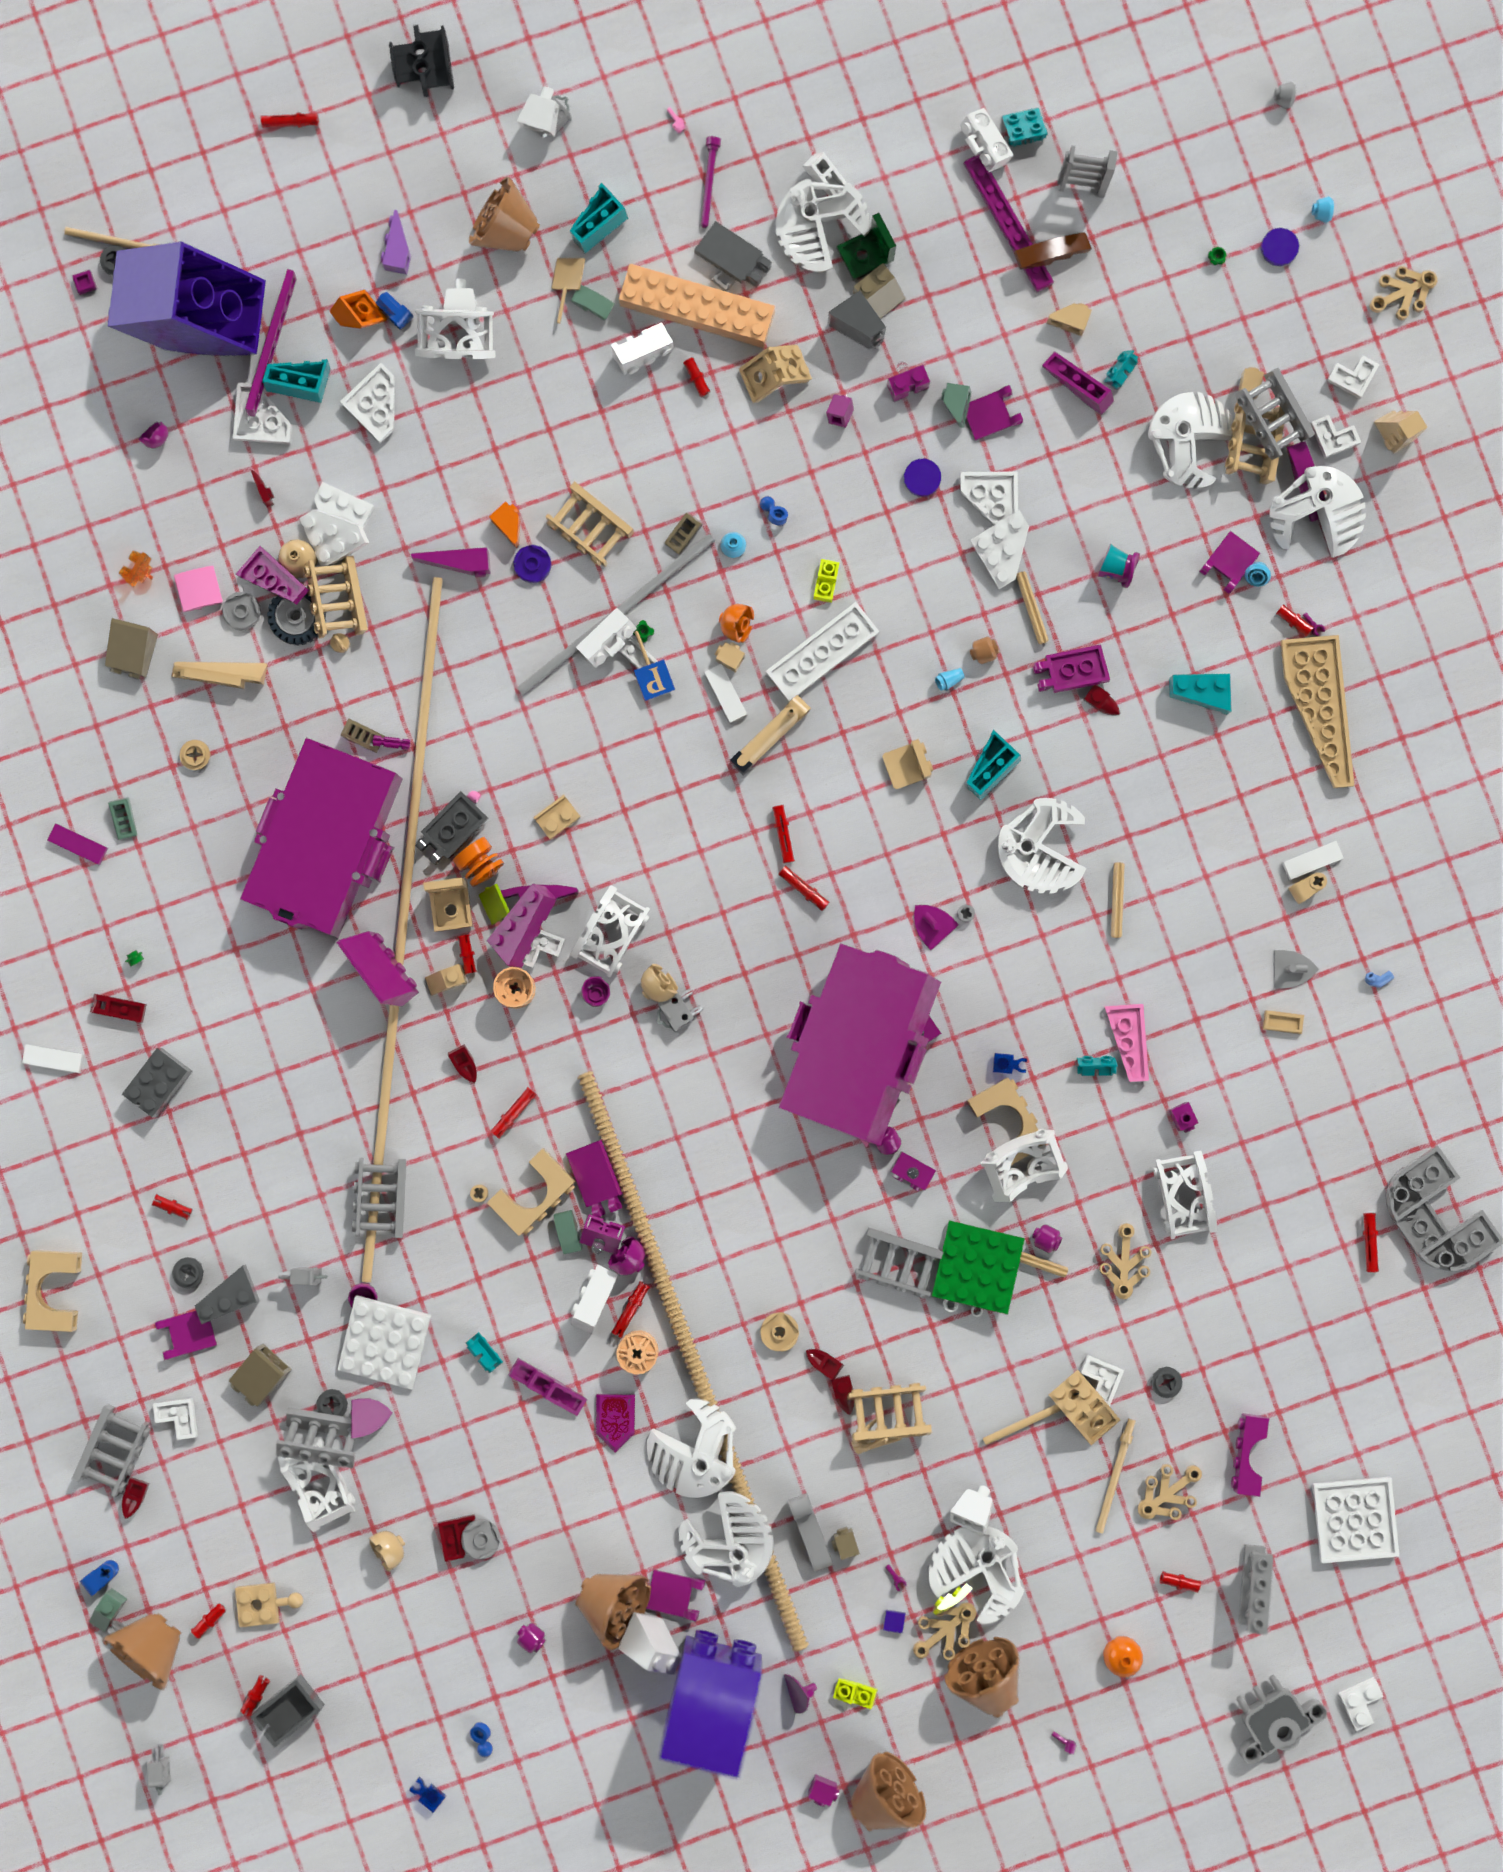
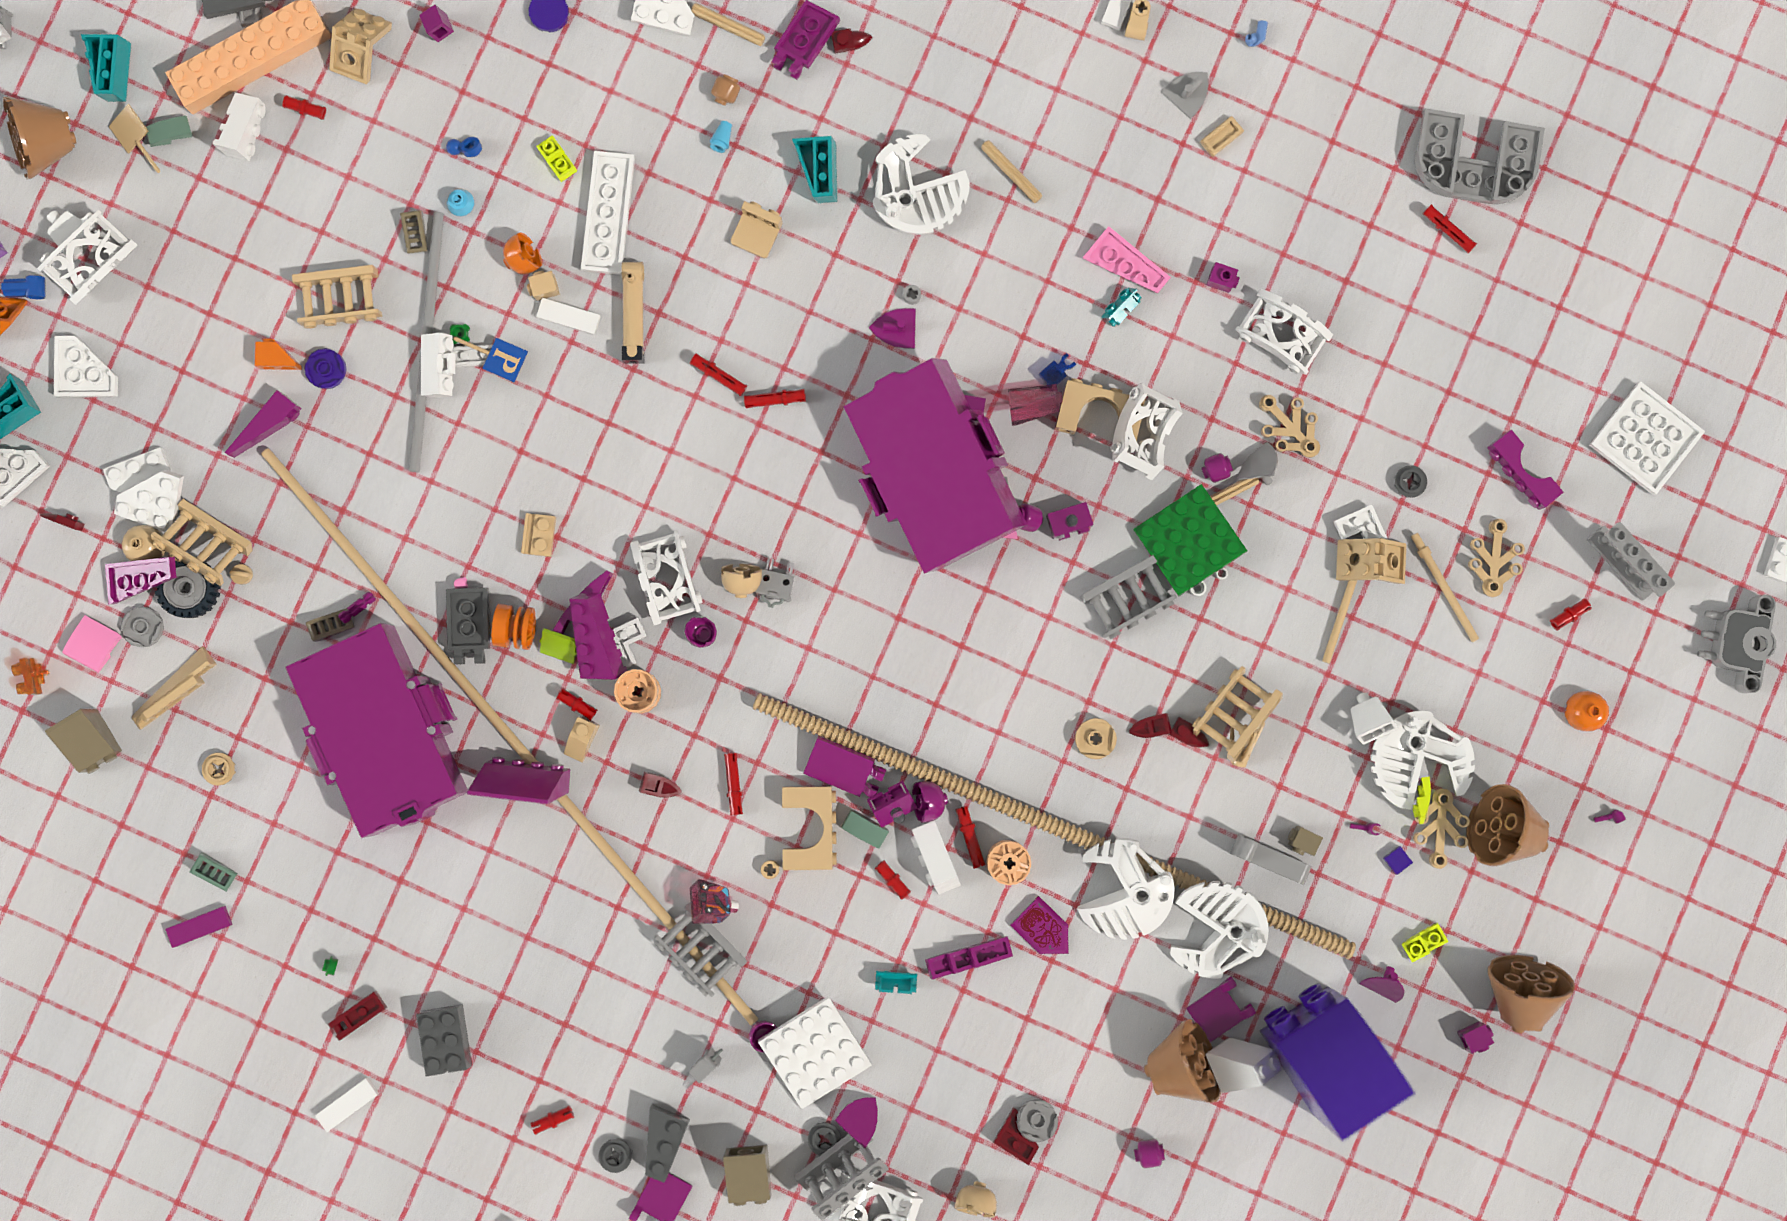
camera: 50 degrees left, 0 degrees up
(418, 1174) = (710, 902): none -> clear pink torso
(448, 893) = (515, 672): tan bracket -> none
(551, 1284) = (892, 879): none -> red pin
(969, 1069) = (1033, 402): none -> clear pink slope
(1077, 1266) = (1260, 464): none -> light grey shield

